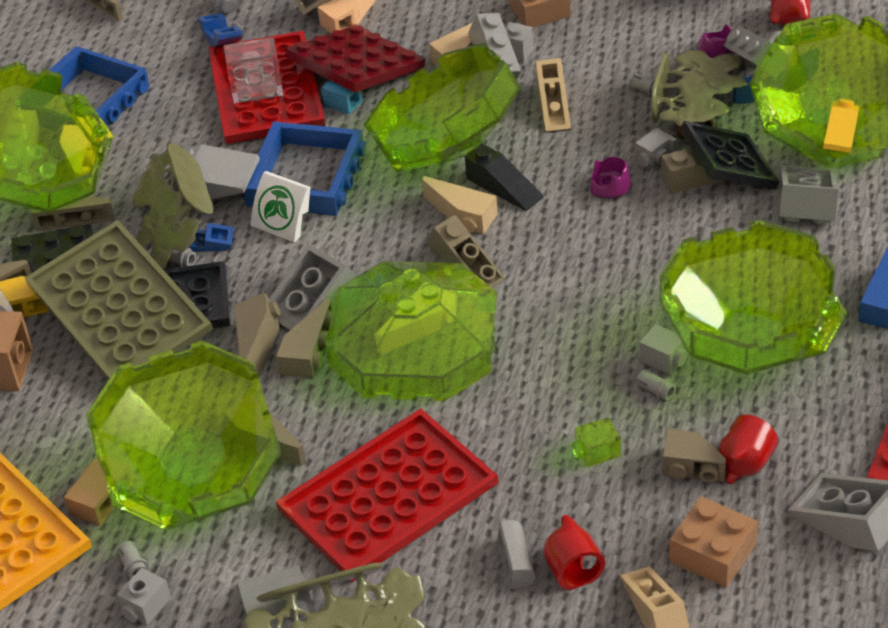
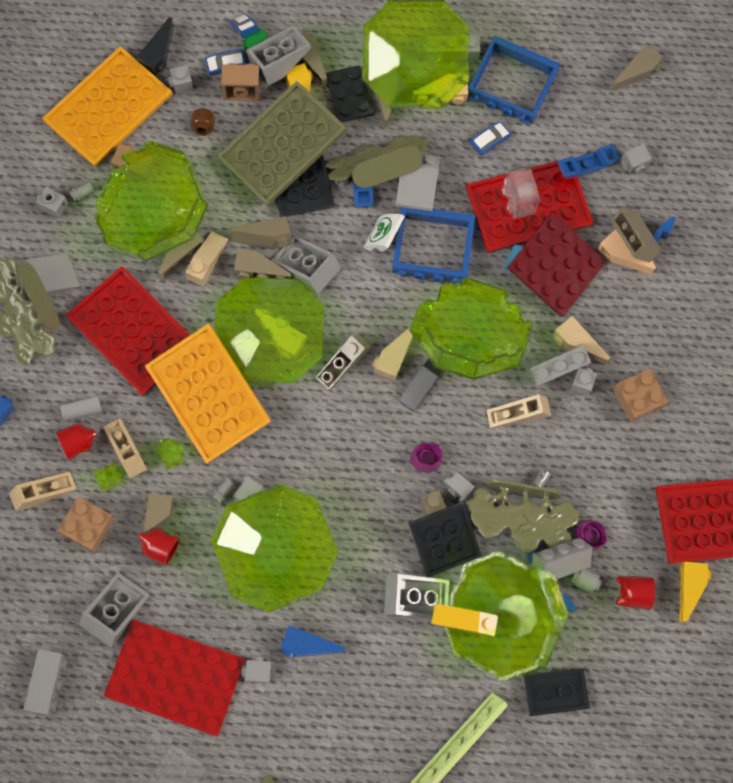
camera: 75 degrees right, 30 degrees up
(51, 405) = (202, 121): none -> reddish brown head
(161, 117) = (490, 138): none -> slope
(294, 404) = (206, 258): none -> tan slope
(505, 385) = (208, 393): none -> light orange plate
(587, 495) = (125, 448): none -> tan slope
(634, 515) = (109, 477): none -> clear neon green brick

